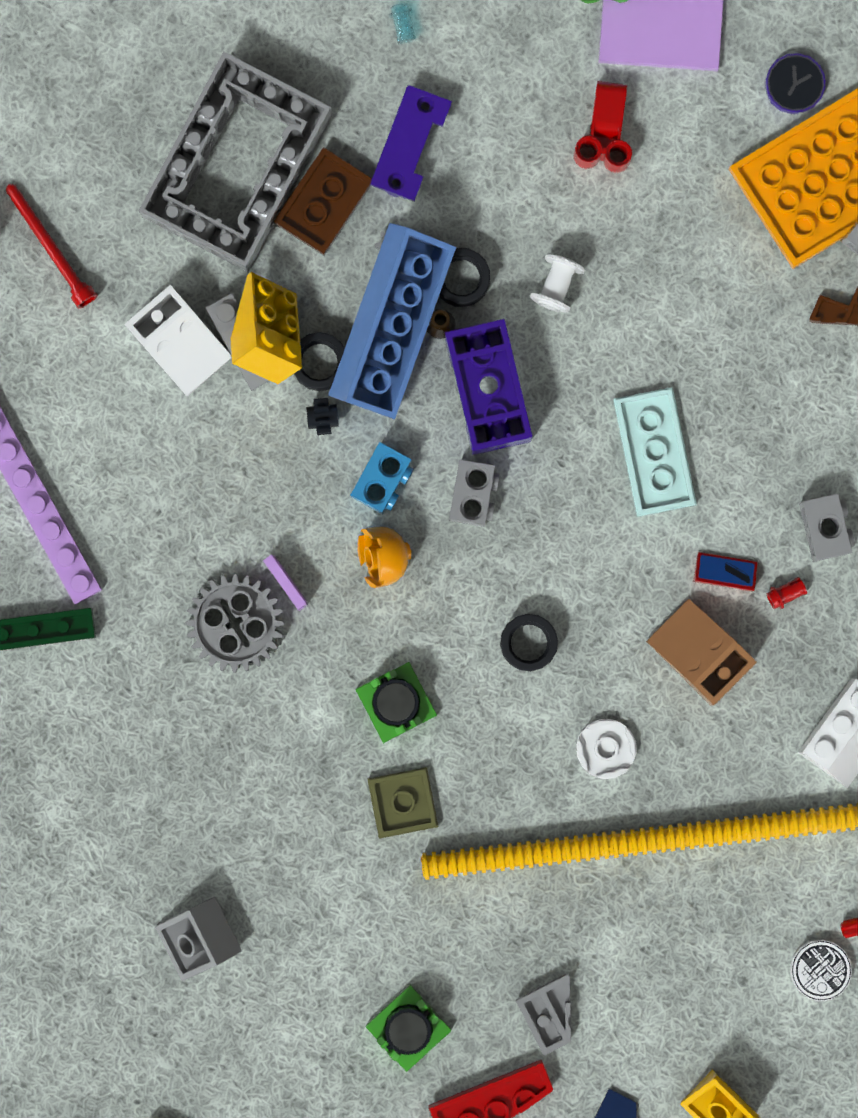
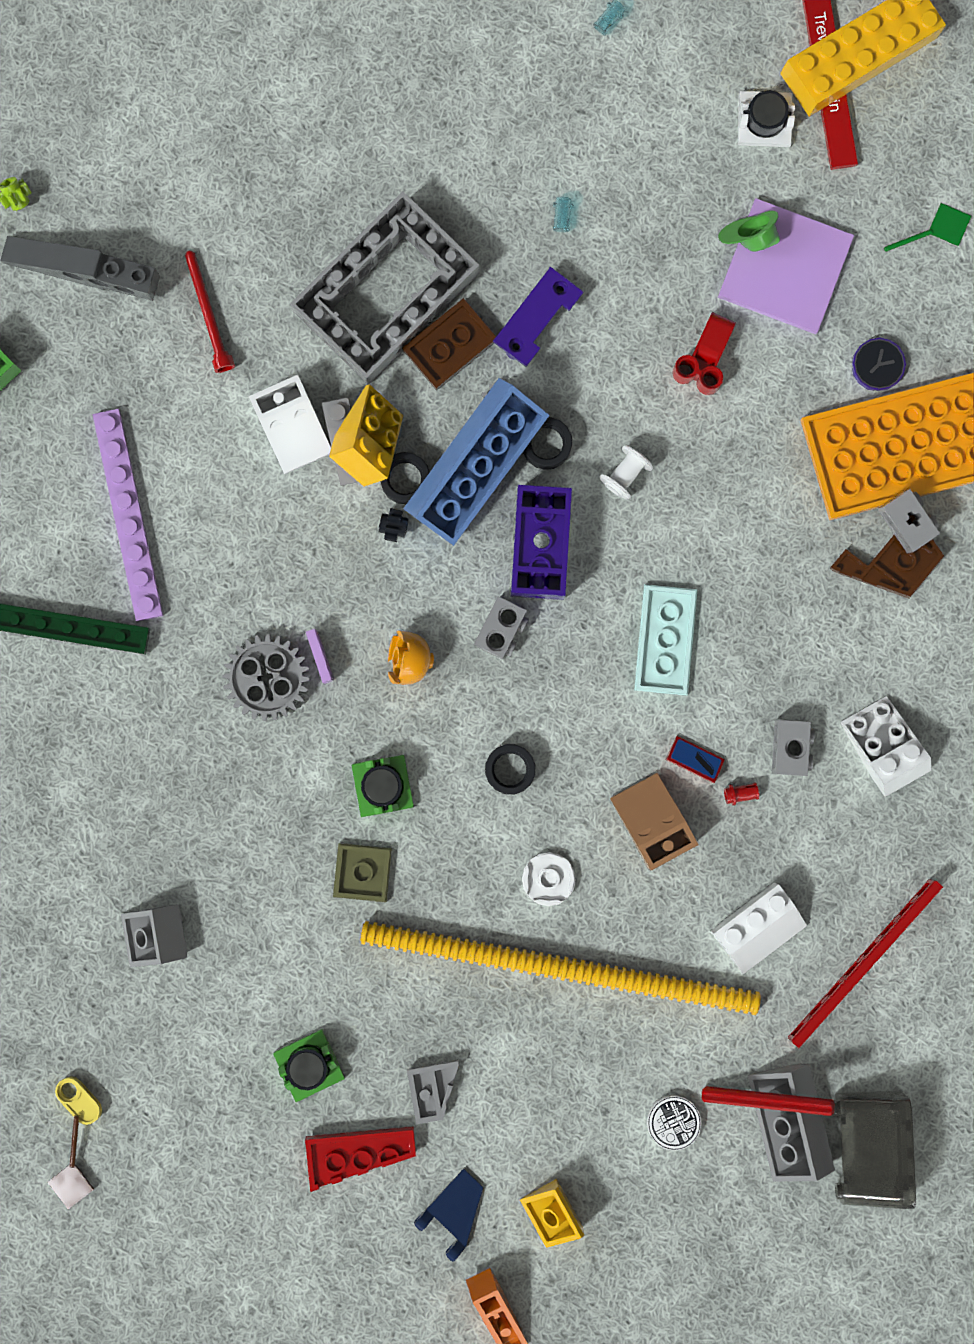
camera: 10 degrees right, 0 degrees up
(374, 475) = (422, 588): dark azure brick -> none
(438, 331) = (512, 481): dark brown cone -> none

